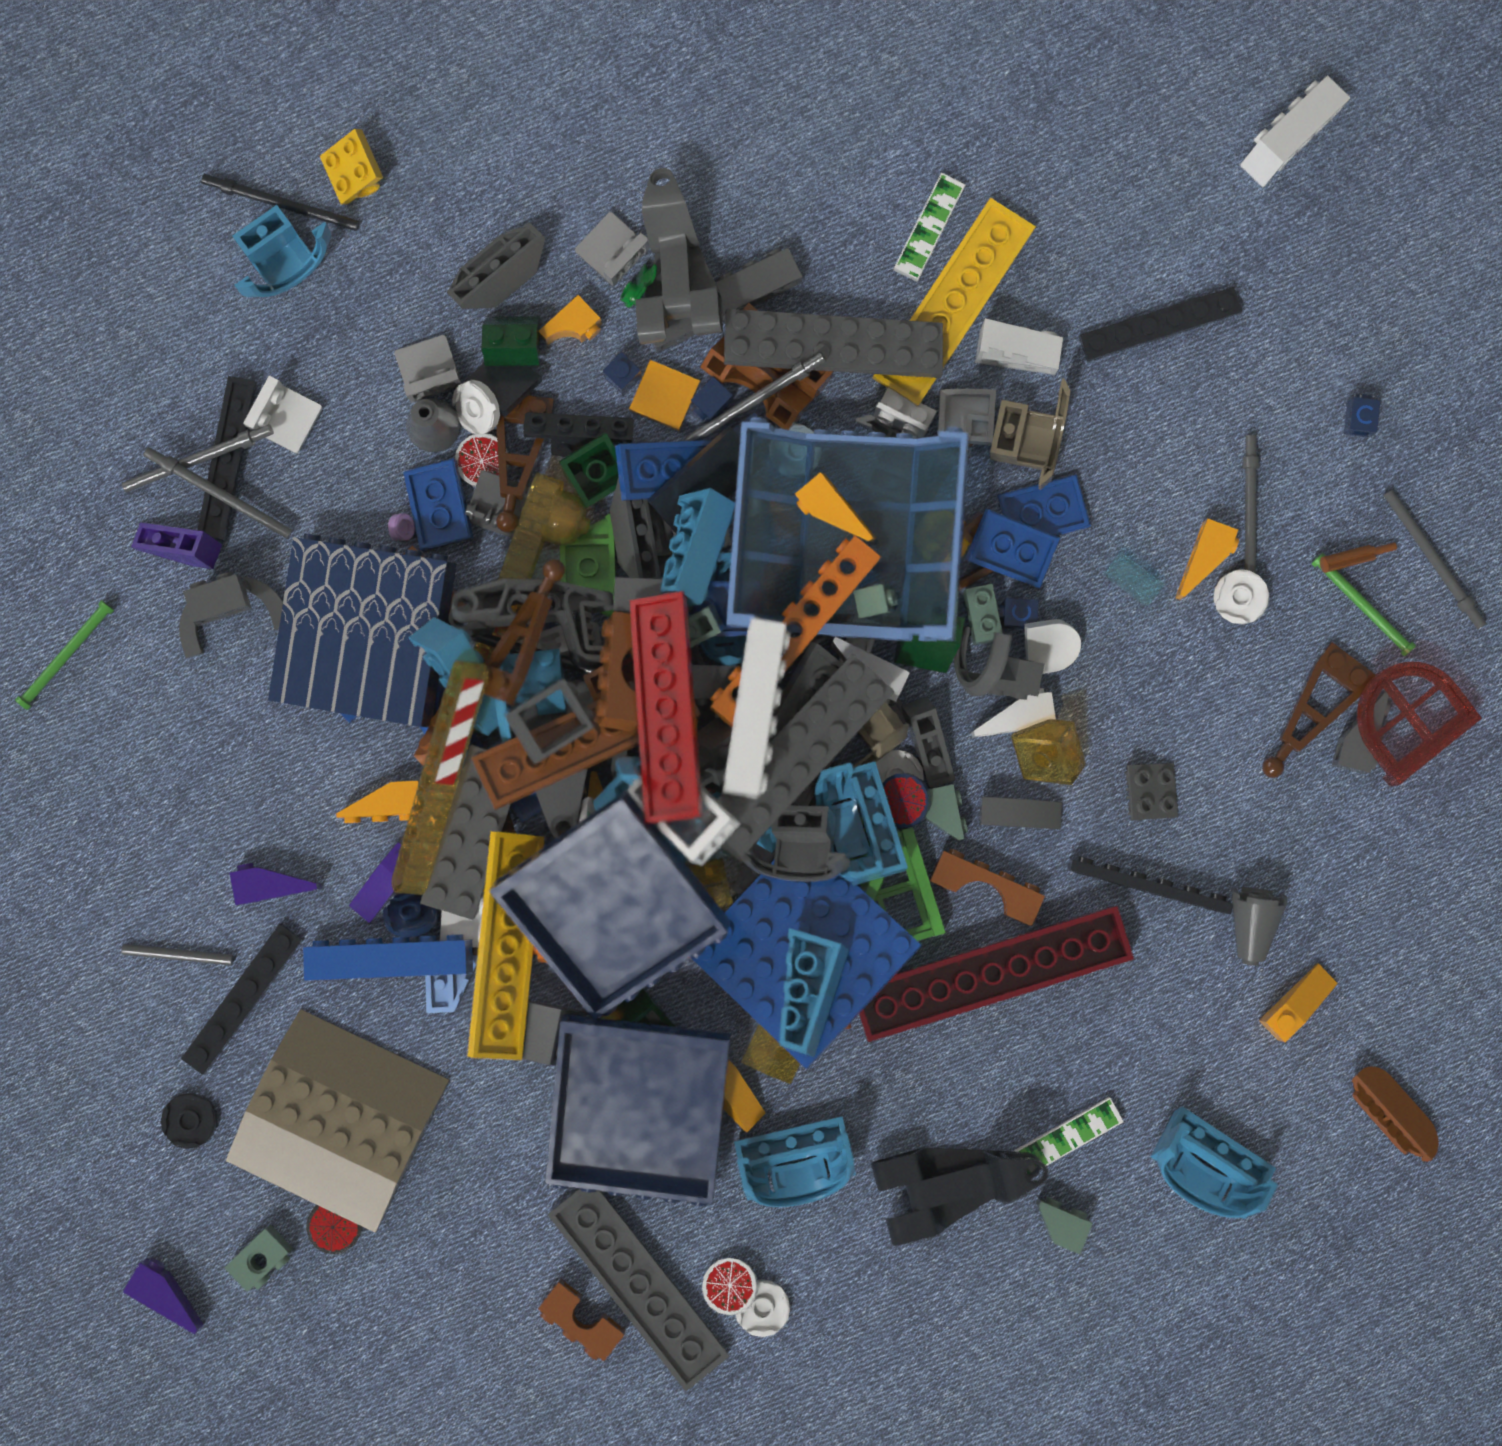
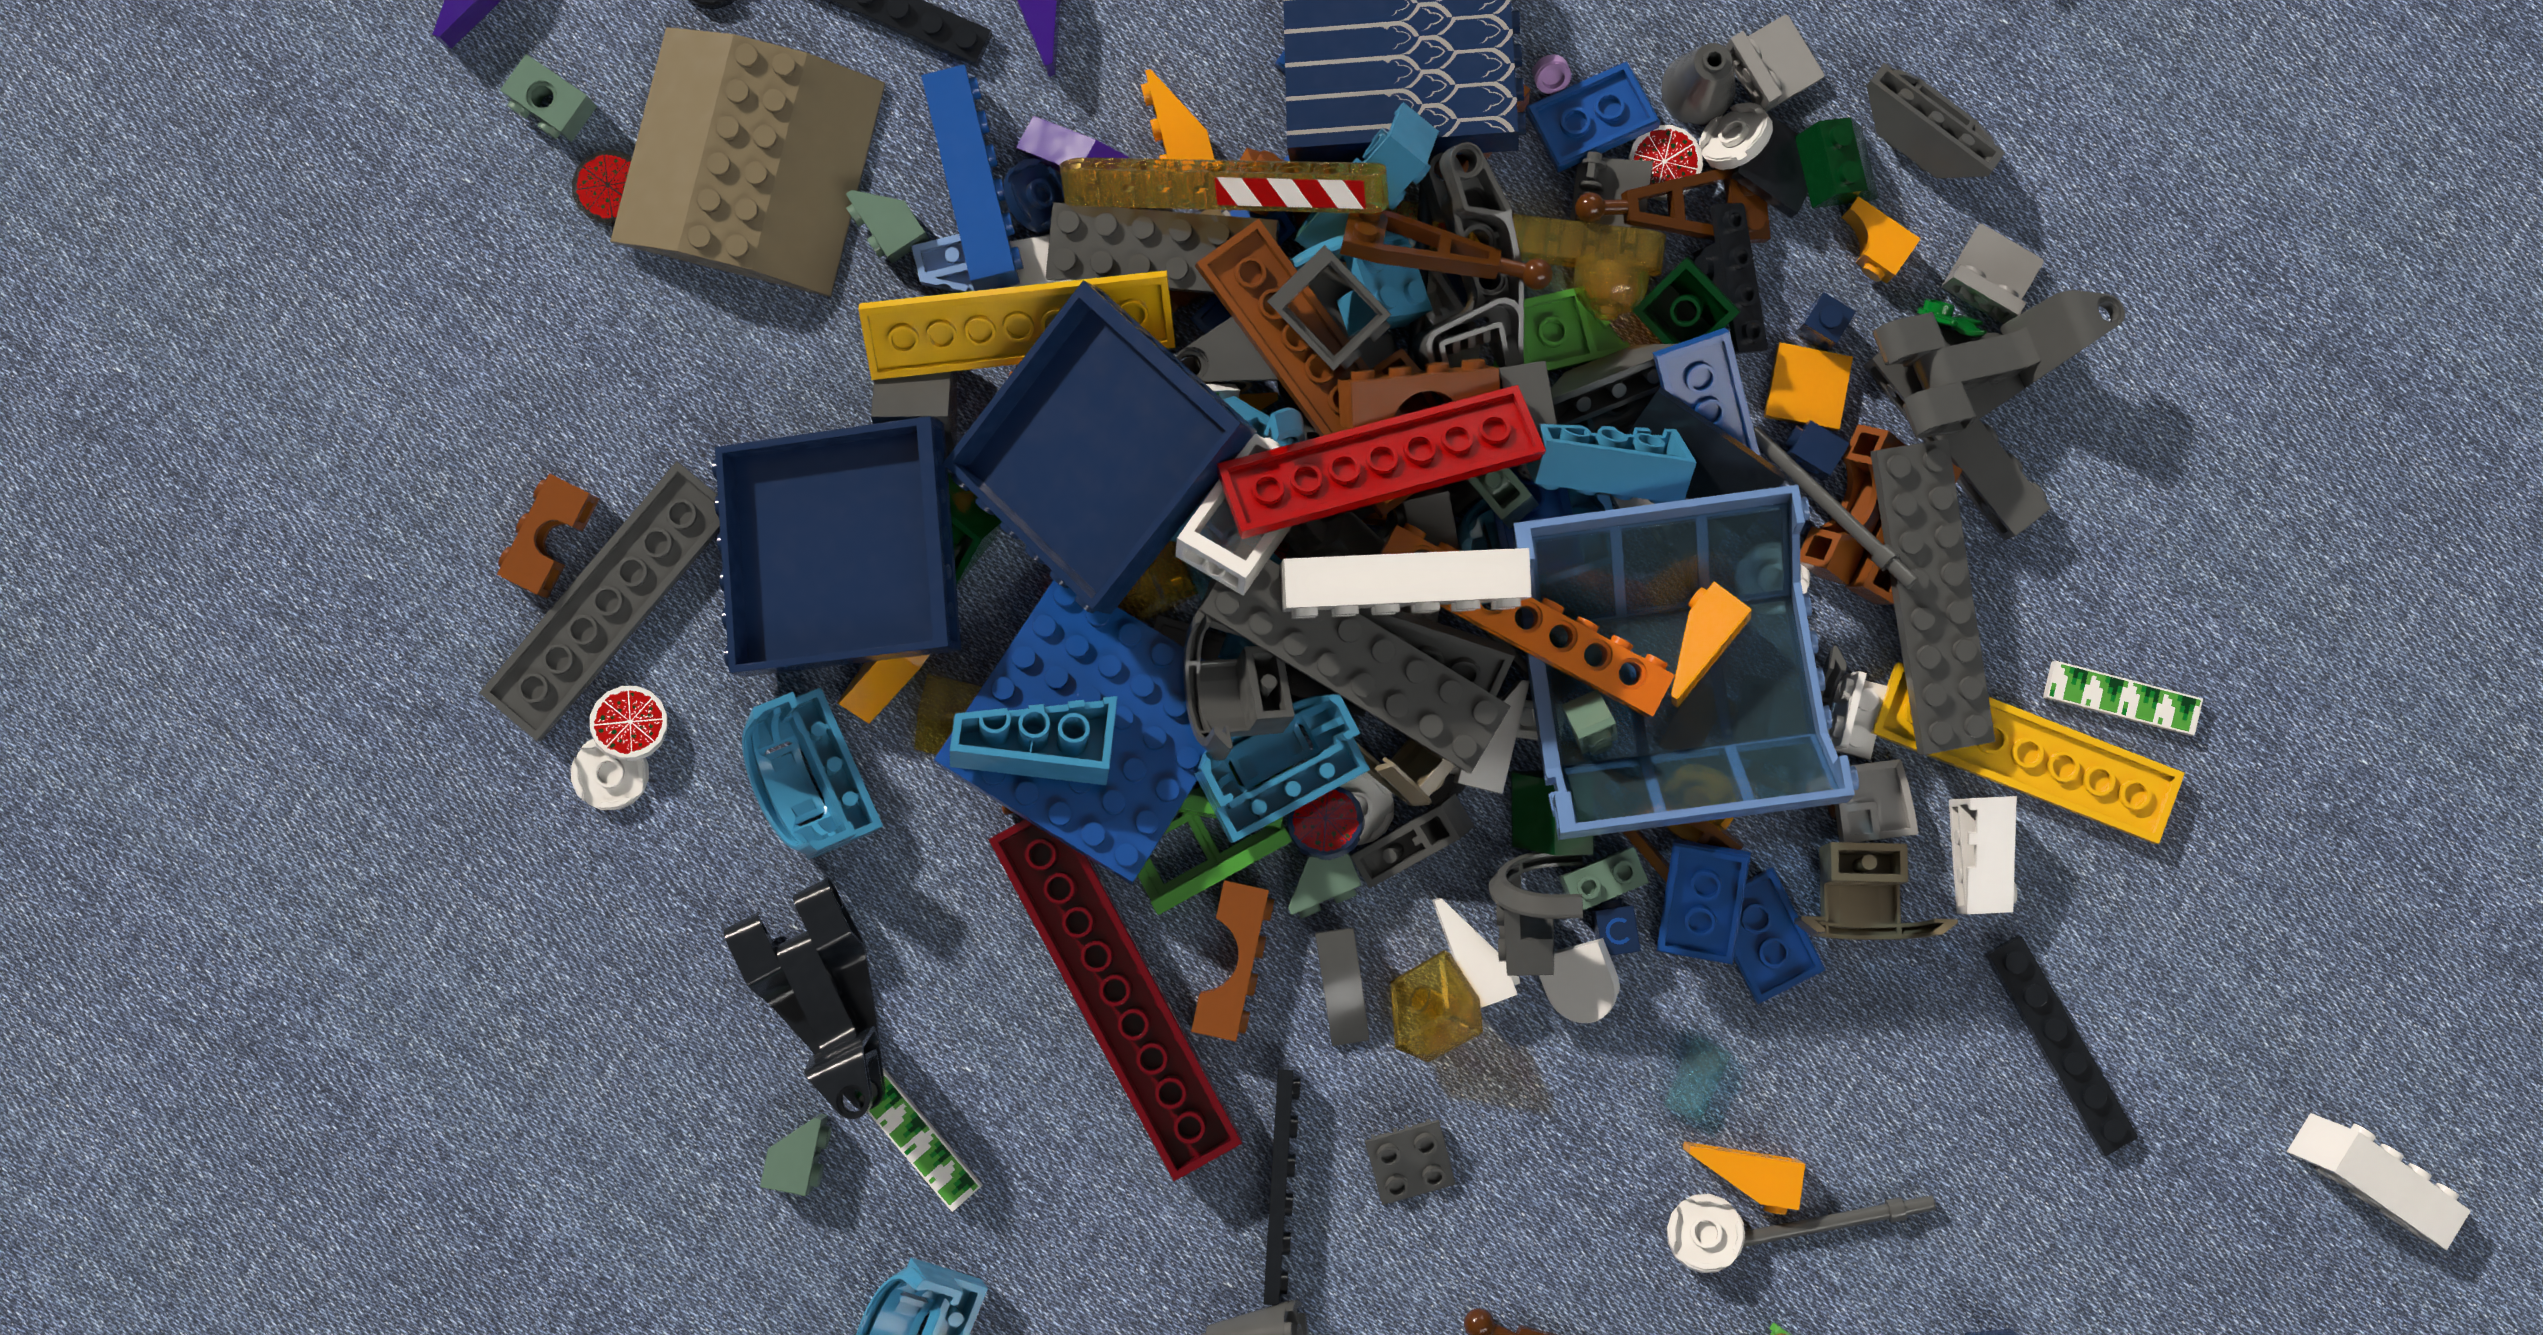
camera: 80 degrees right, 0 degrees up
(406, 1025) = (889, 221): none -> sand green slope

